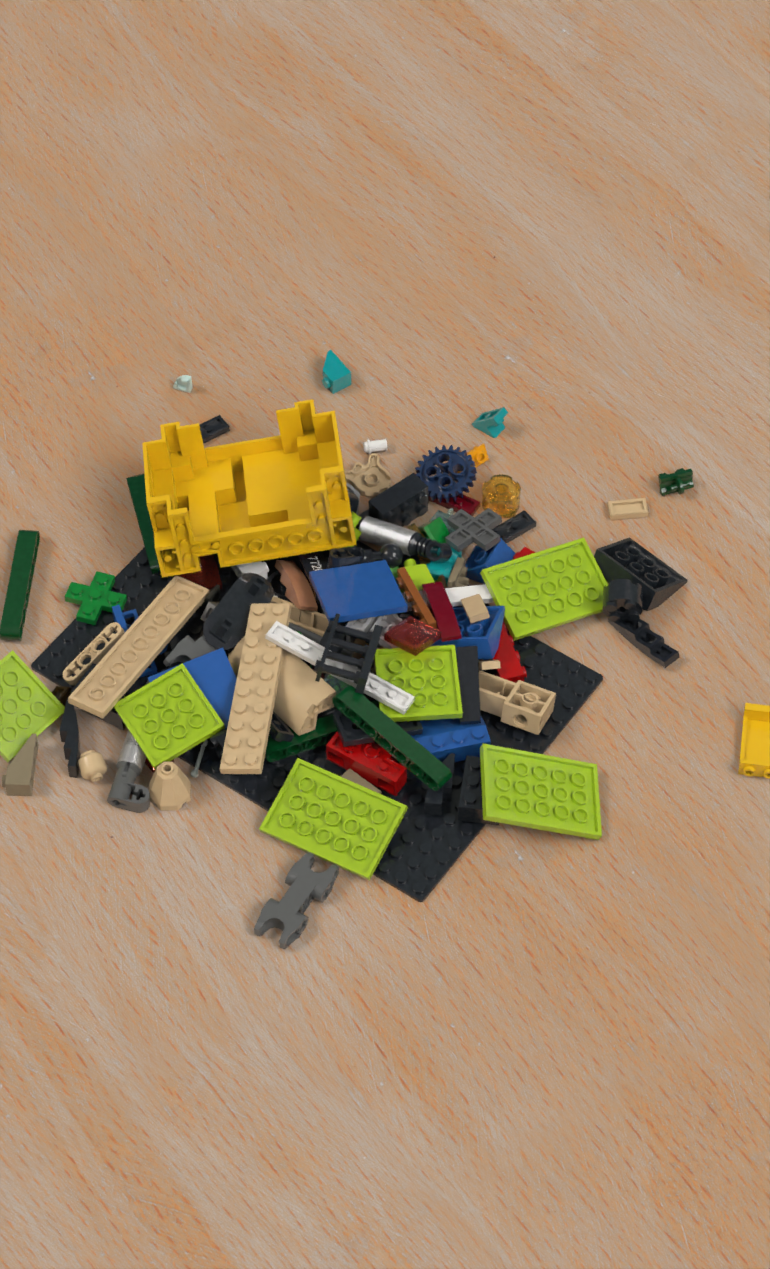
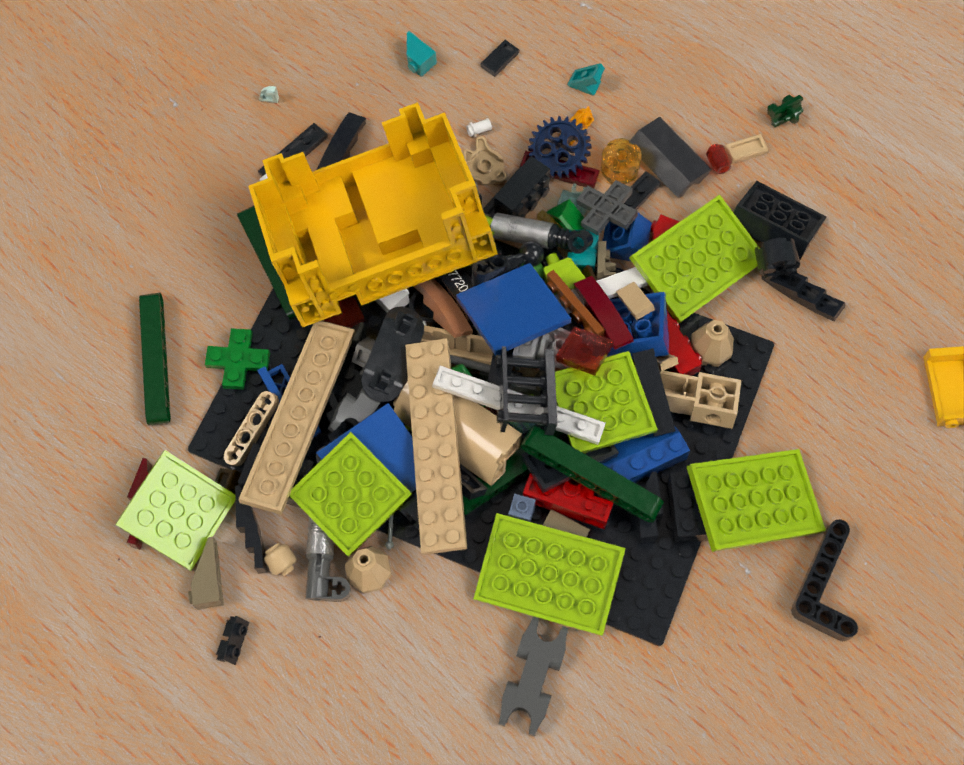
camera: 10 degrees left, 15 degrees up
(35, 819) = (235, 630): none -> black hinge
(246, 429) = (343, 140): none -> black slope
(324, 759) = (522, 508): none -> sand blue brick
(413, 390) = (499, 58): none -> black tile
(542, 661) = (713, 343): none -> tan cone
(550, 501) = (670, 156): none -> black slope
(583, 874) = (820, 581): none -> black beam
(597, 511) = (718, 158): none -> clear red brick

